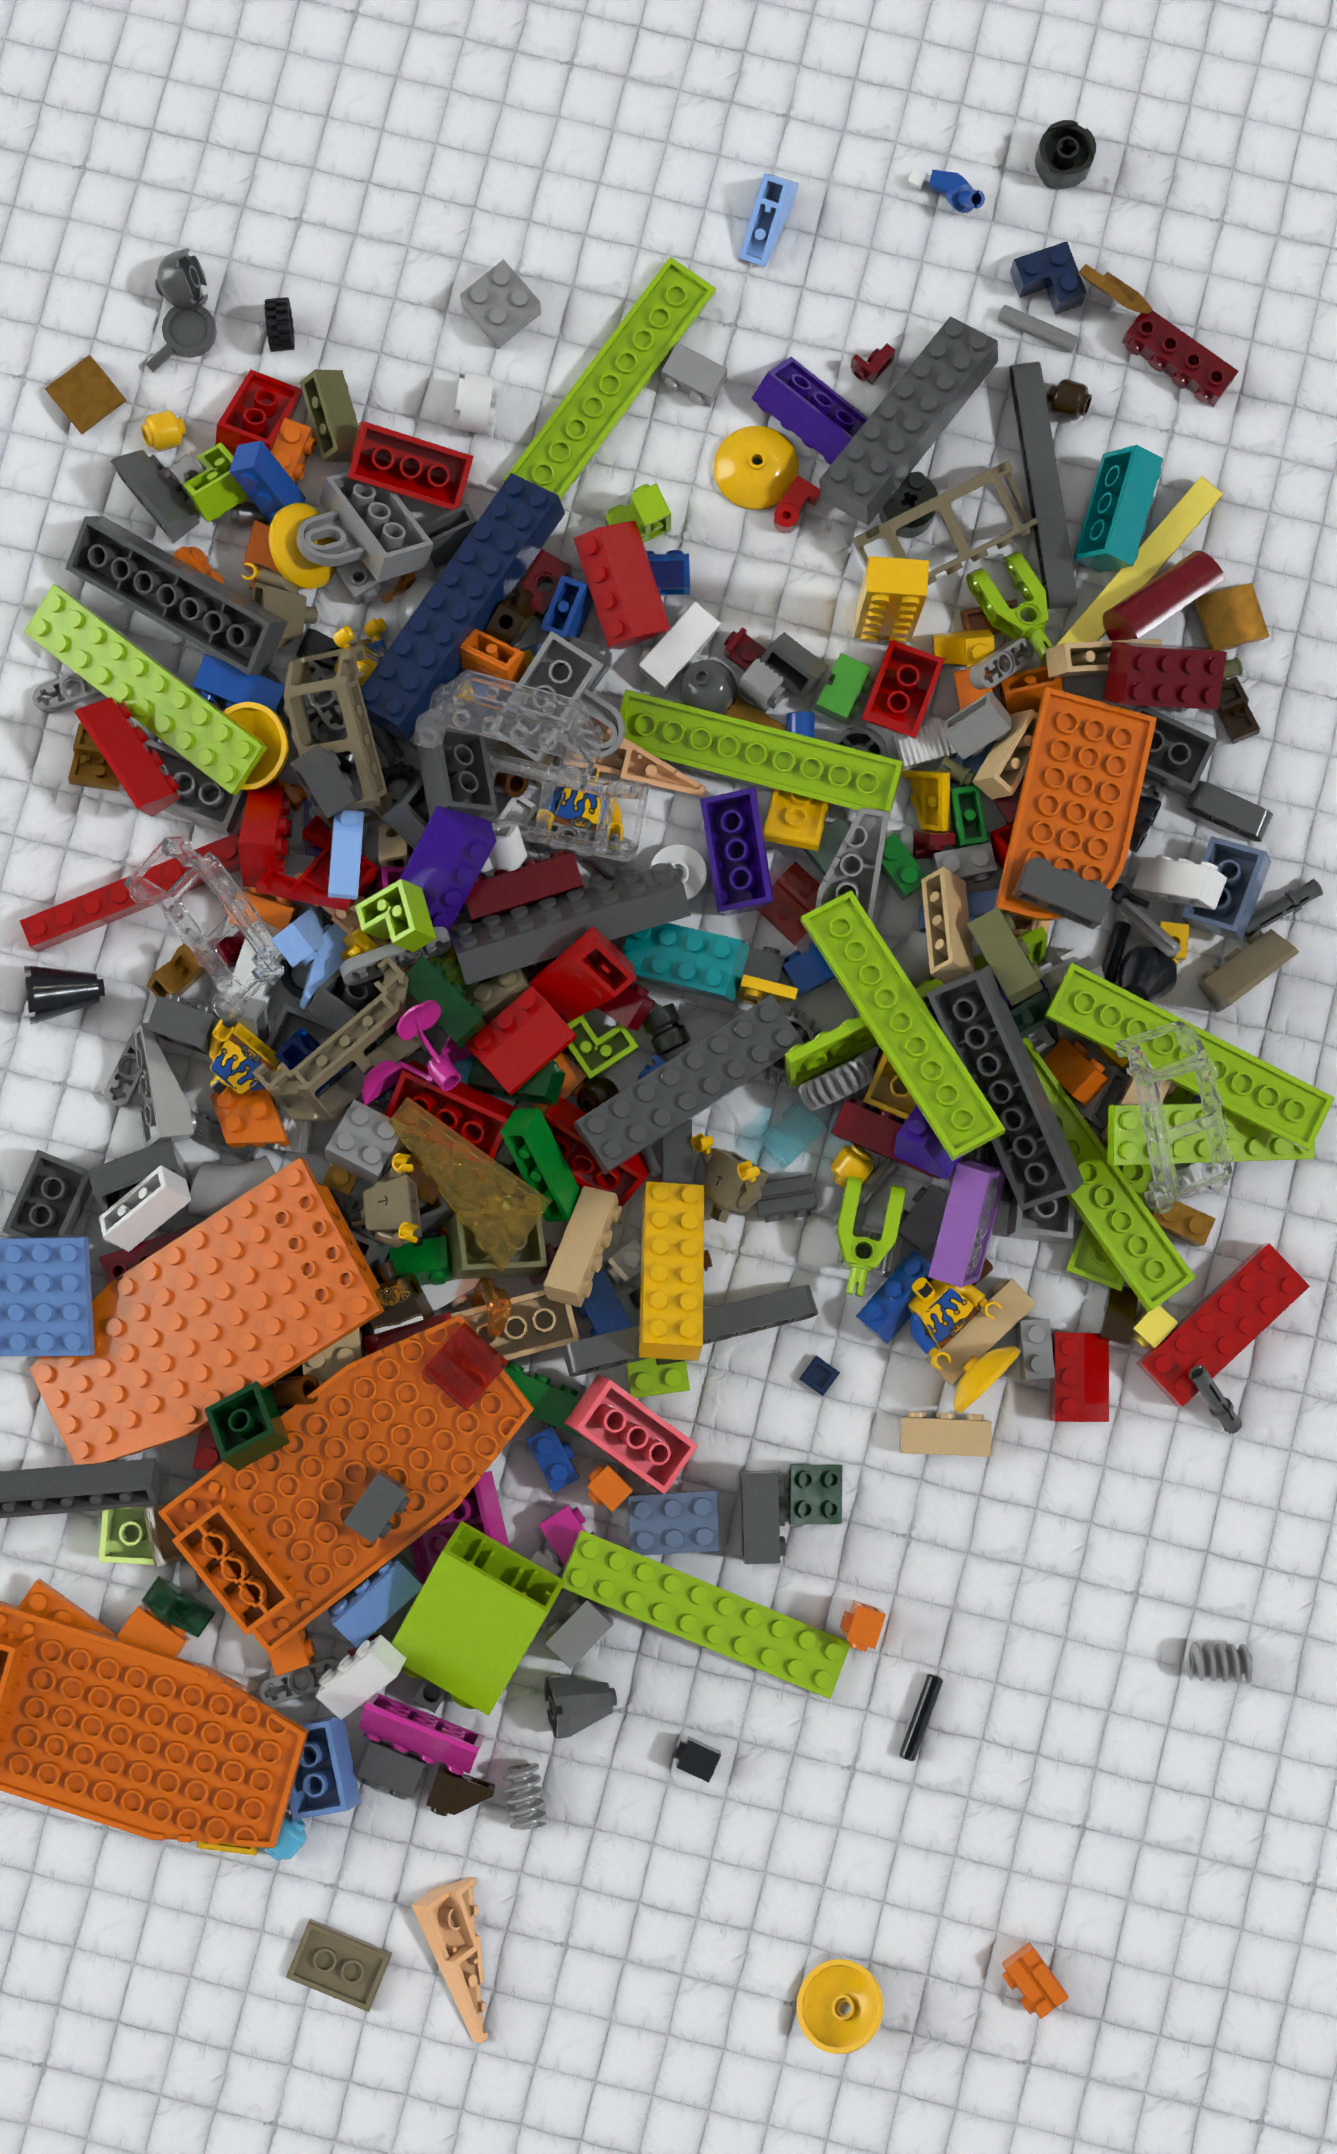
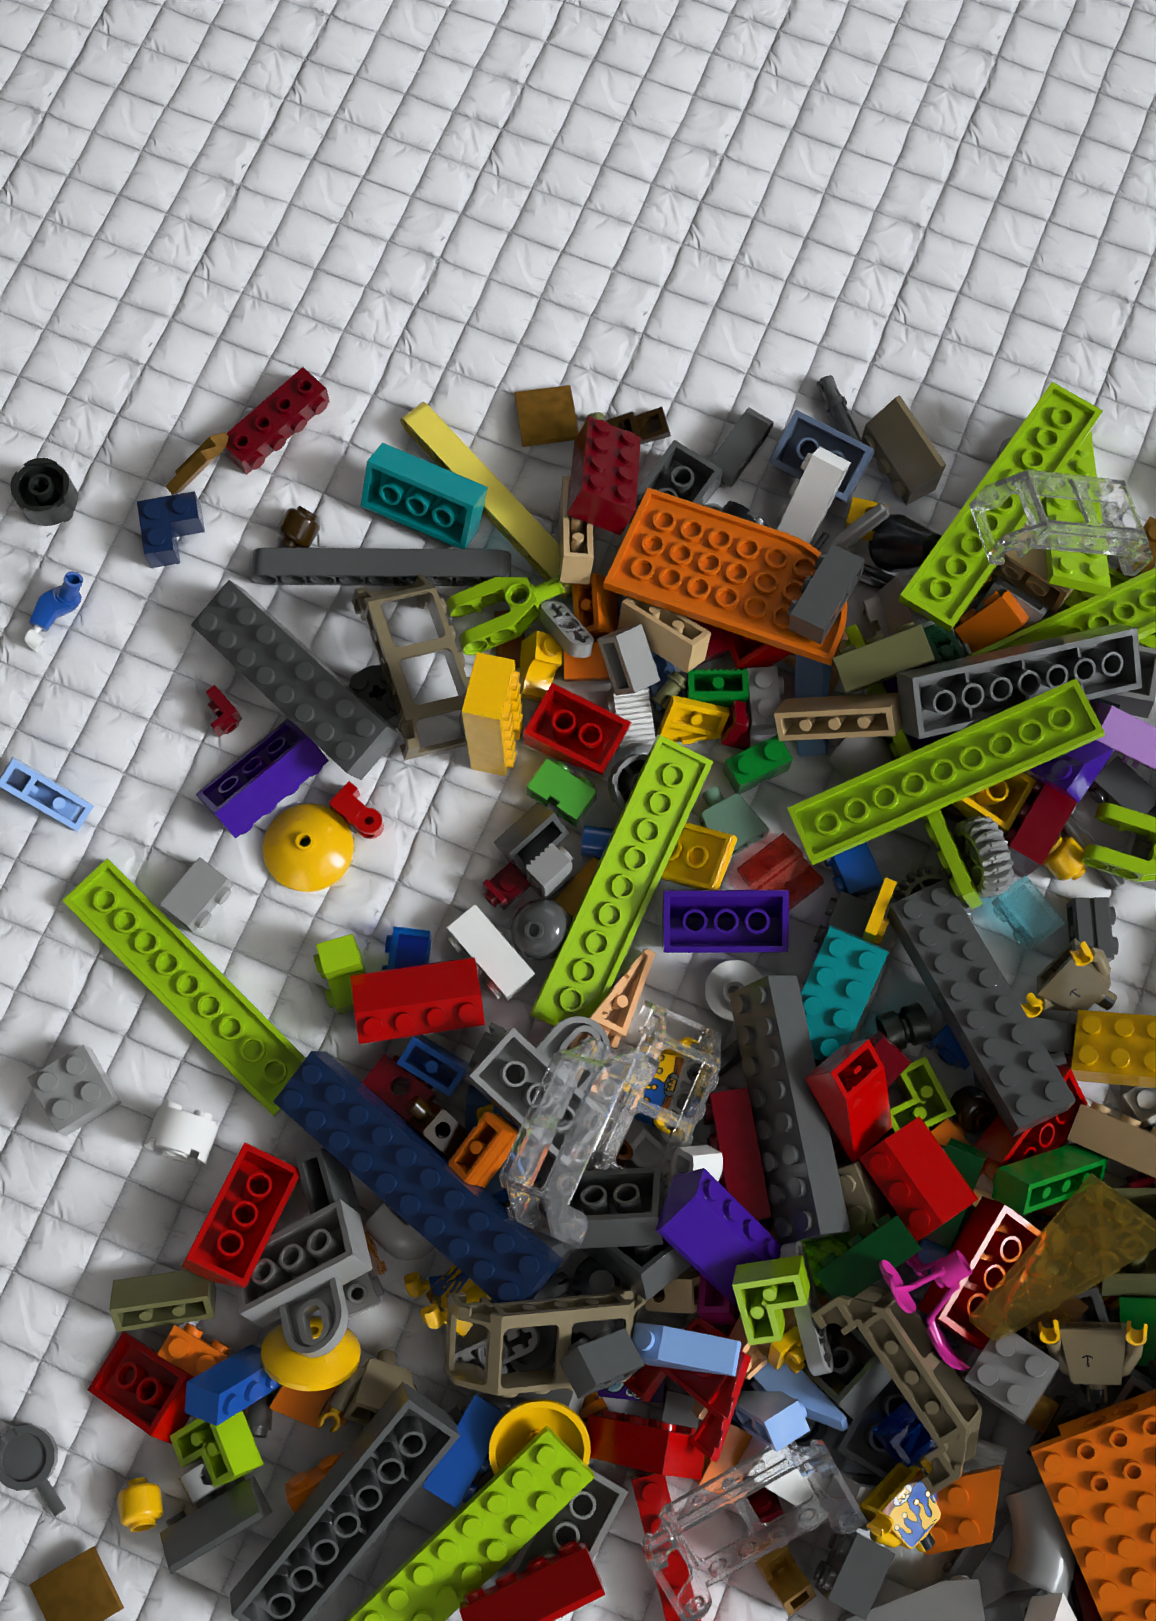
camera: 80 degrees left, 10 degrees down
(279, 324) = (44, 1346): black tyre -> none
(317, 642) = (427, 1354): black piece -> none
(858, 861) = (758, 799): light grey wedge -> none
(1037, 328) = (217, 548): light grey axle -> none
(1162, 597) = (524, 466): dark red brick -> none

